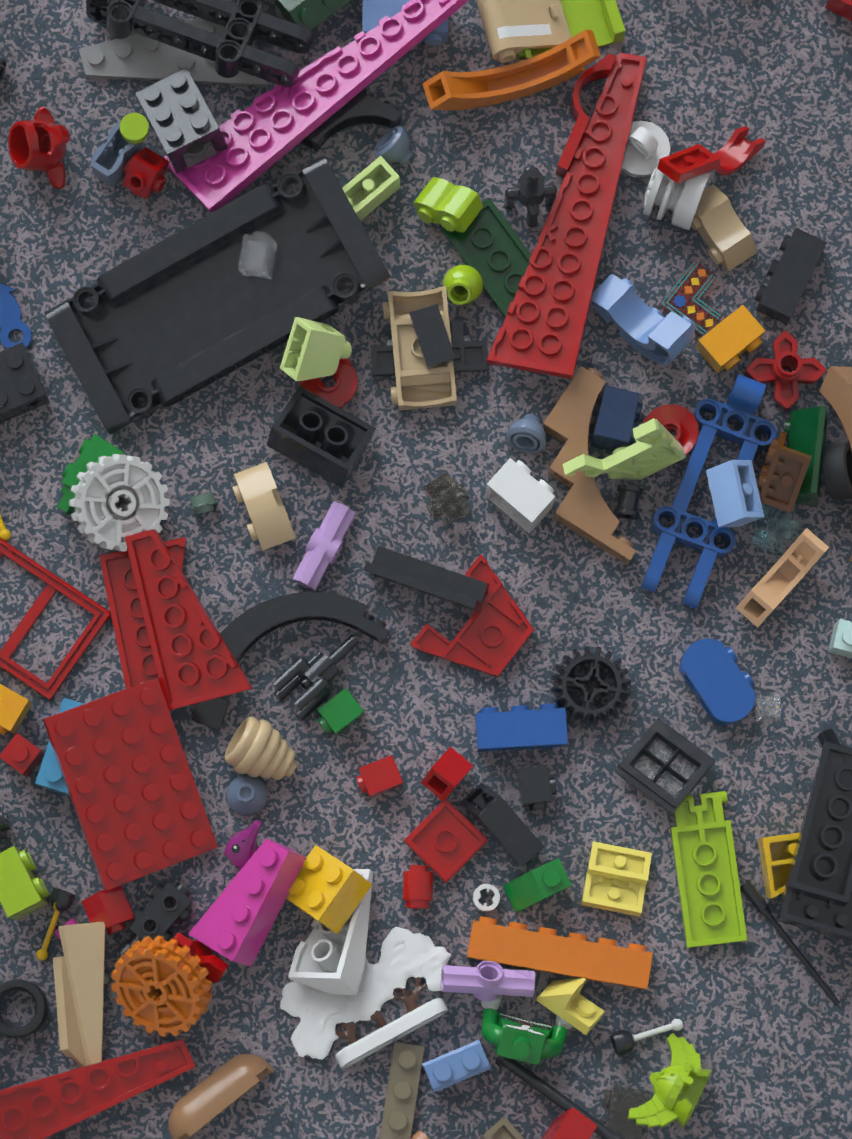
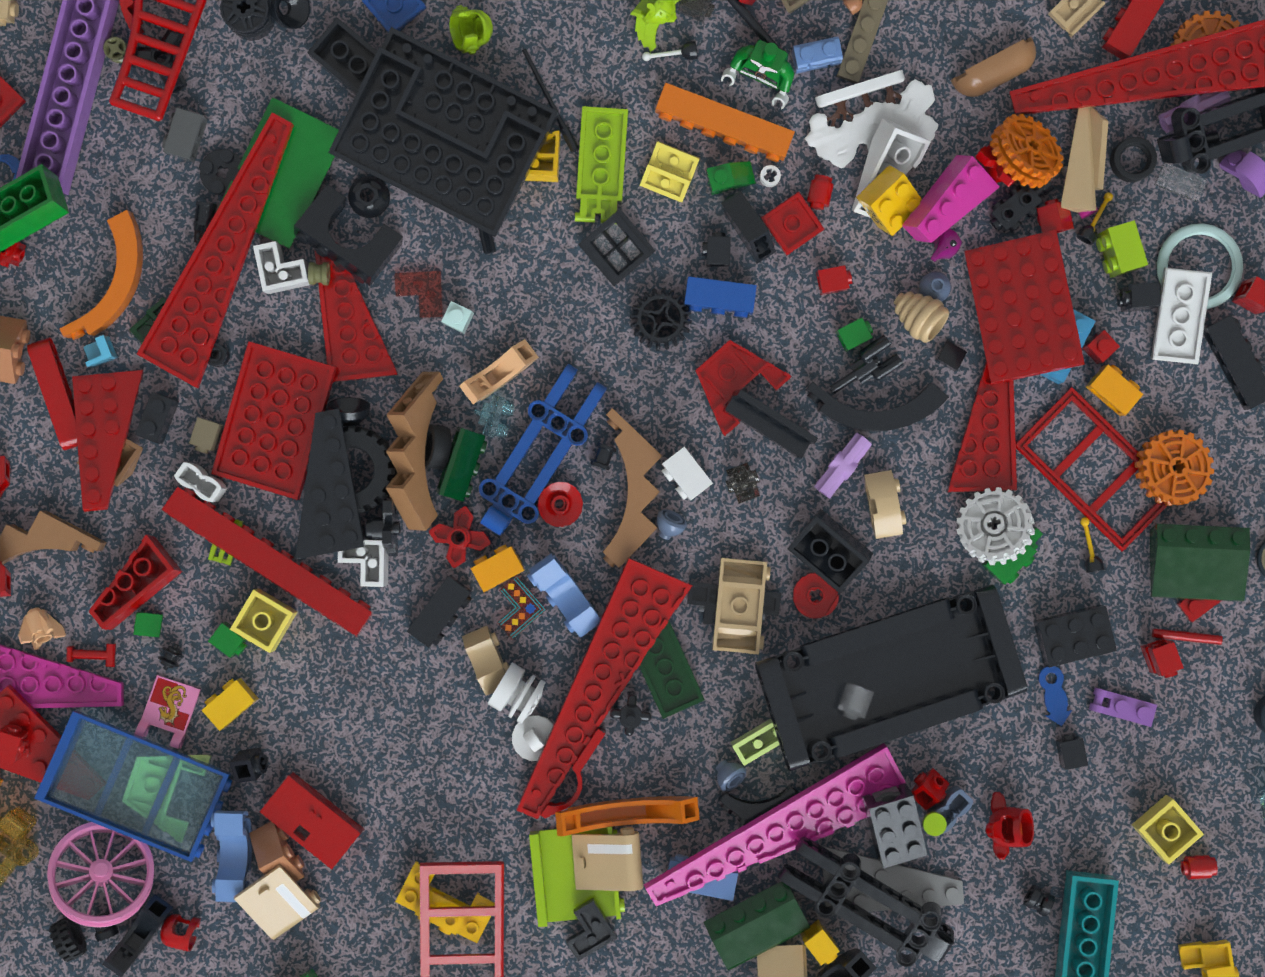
camera: 165 degrees left, 10 degrees up
(184, 642) = (964, 405): red wing -> none
(203, 502) = (929, 517): sand green plate -> none
(313, 350) = (825, 616): yellowish green torso -> none
(432, 336) = (731, 611): black tile -> none
(446, 774) = (782, 271): red brick -> none
(448, 205) = (697, 717): lime brick -> none
(463, 284) = (698, 651): lime piece -> none
(487, 981) = (769, 108): lavender piece -> none
(565, 1001) = (726, 86): light yellow slope -> none
(616, 419) = (599, 521): dark blue brick -> none
(651, 453) = (588, 485): yellowish green wing -> none
(699, 160) = (494, 713): red piece -> none
(718, 681) = (563, 304): blue brick -> none
(734, 493) = (522, 440): light blue brick -> none
(767, 707) = (530, 278): clear wheel -> none
(783, 477) = (483, 448): reddish brown bracket -> none

